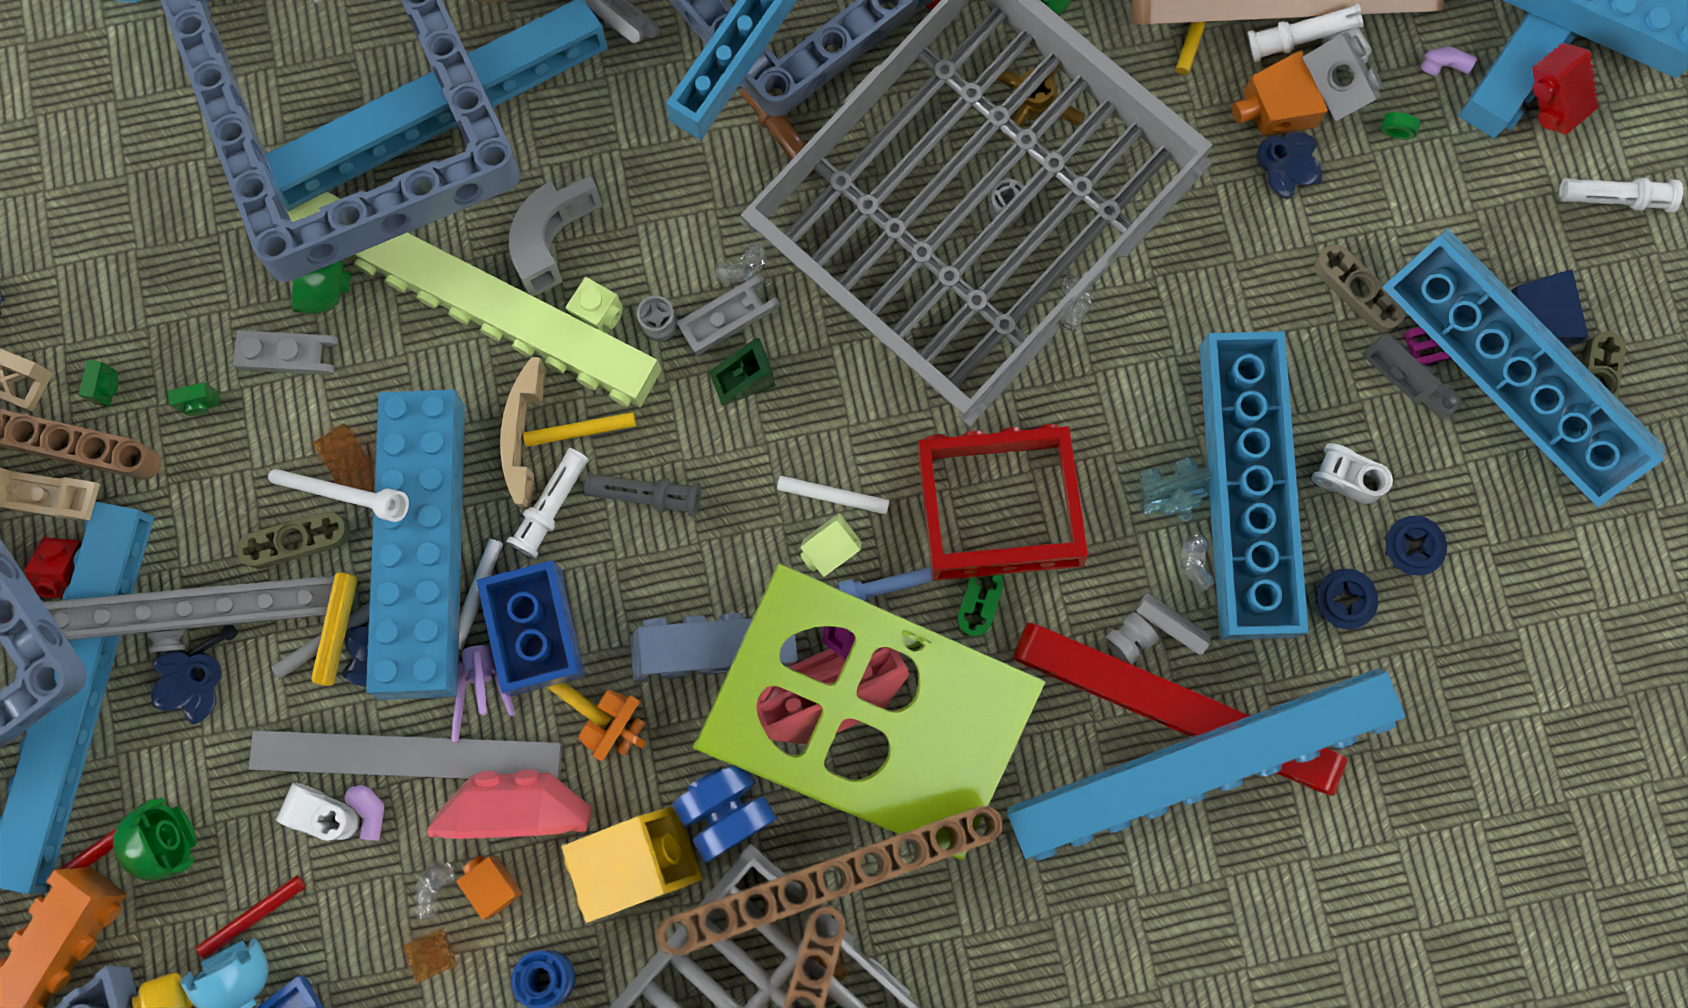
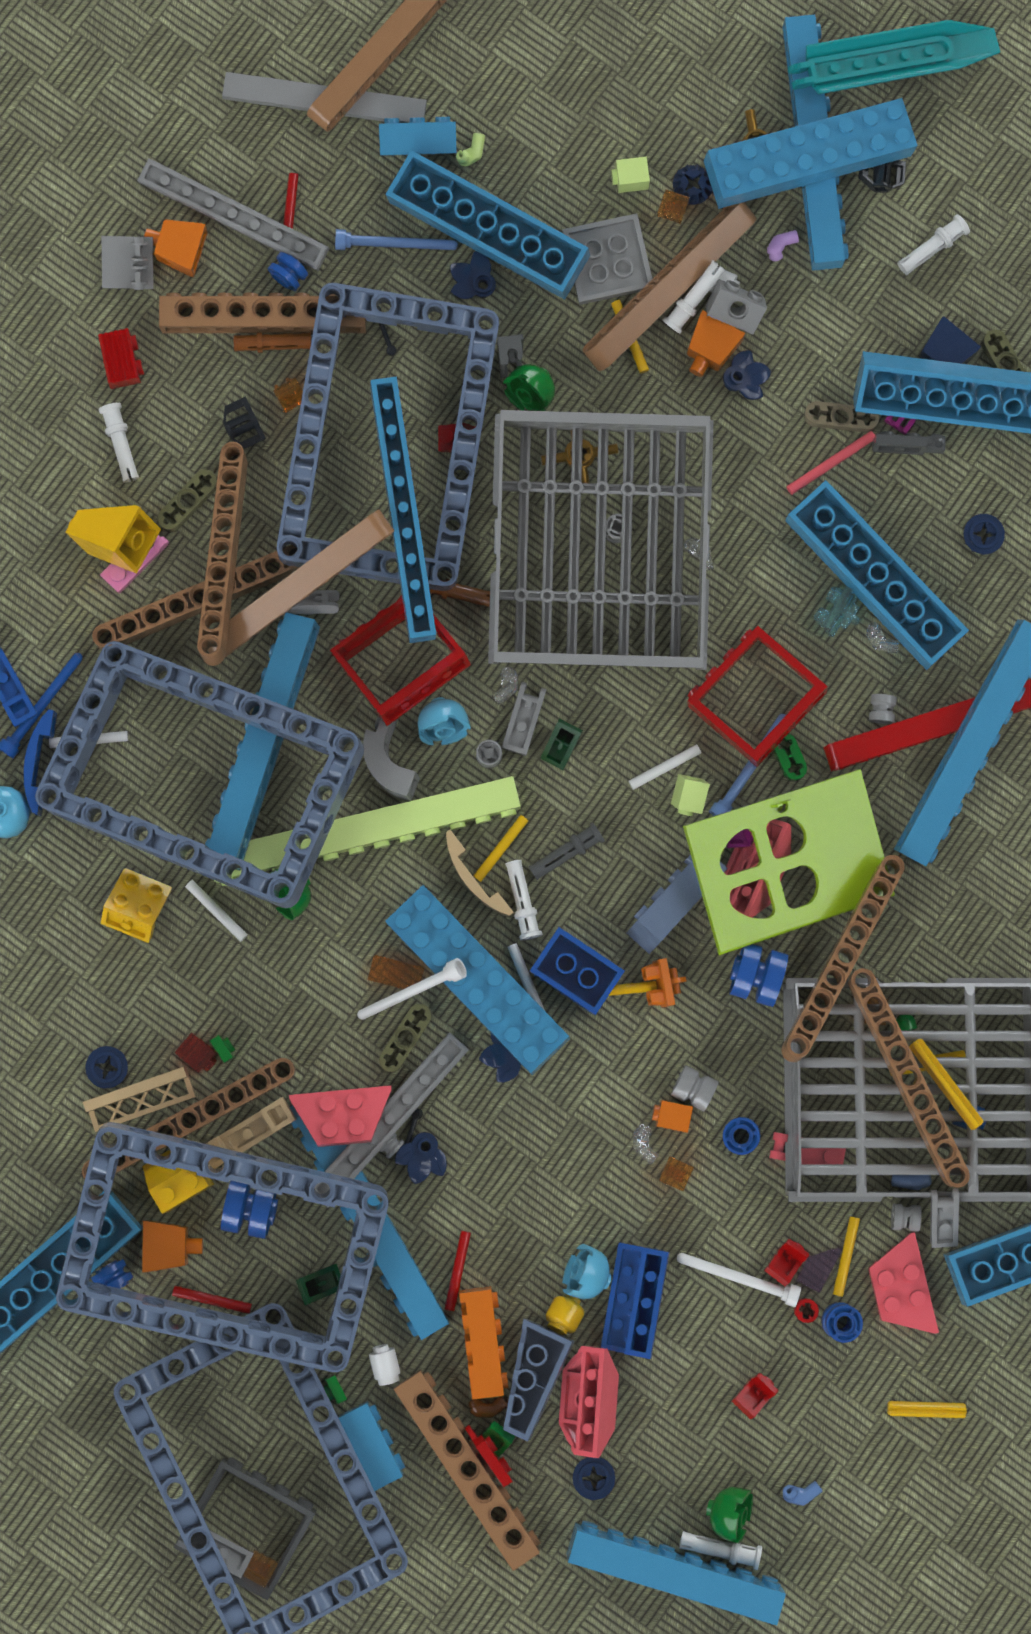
camera: 50 degrees left, 5 degrees up
(52, 566) = (292, 1154): red bracket -> none
(65, 362) = (197, 1053): none -> clear red brick
(135, 557) = (342, 1115): none -> coral wing
(154, 841) = (484, 1245): green cylinder -> none
(159, 160) = (135, 905): none -> yellow bracket
(194, 399) = (283, 1012): green plate -> none
(234, 246) = (216, 910): none -> white bar
(250, 917) = (565, 1239): red bar -> none
(282, 352) = (302, 947): light grey hinge -> none
(310, 649) = (471, 1073): light grey bar -> none
(313, 812) = (547, 1160): white piece -> none
(334, 629) = (474, 1061): yellow axle -> none
(369, 807) = (574, 1133): lavender arm -> none
(399, 755) = (569, 1092): light grey tile -> none
(478, 667) = (566, 1014): lavender plant -> none
(511, 807) = (648, 1069): coral wedge -> none
(539, 876) = (693, 1087): none -> light grey wheel
(595, 306) = (452, 776): yellowish green brick -> none
(631, 863) = (733, 1042): yellow slope -> none
(638, 242) = (443, 721): none -> medium azure cylinder
(642, 179) = (418, 688): none -> red window
(1173, 624) = (897, 682): light grey tile -> none
(1305, 327) = (830, 463): none -> coral bar
(1349, 474) = (916, 525): white piece -> none
(1356, 585) = (984, 594): dark blue gear -> none
(1400, 125) = (788, 305): green tile -> none
(1565, 88) = (858, 215): red brick -> none
(1623, 77) = (882, 176): none -> black piece

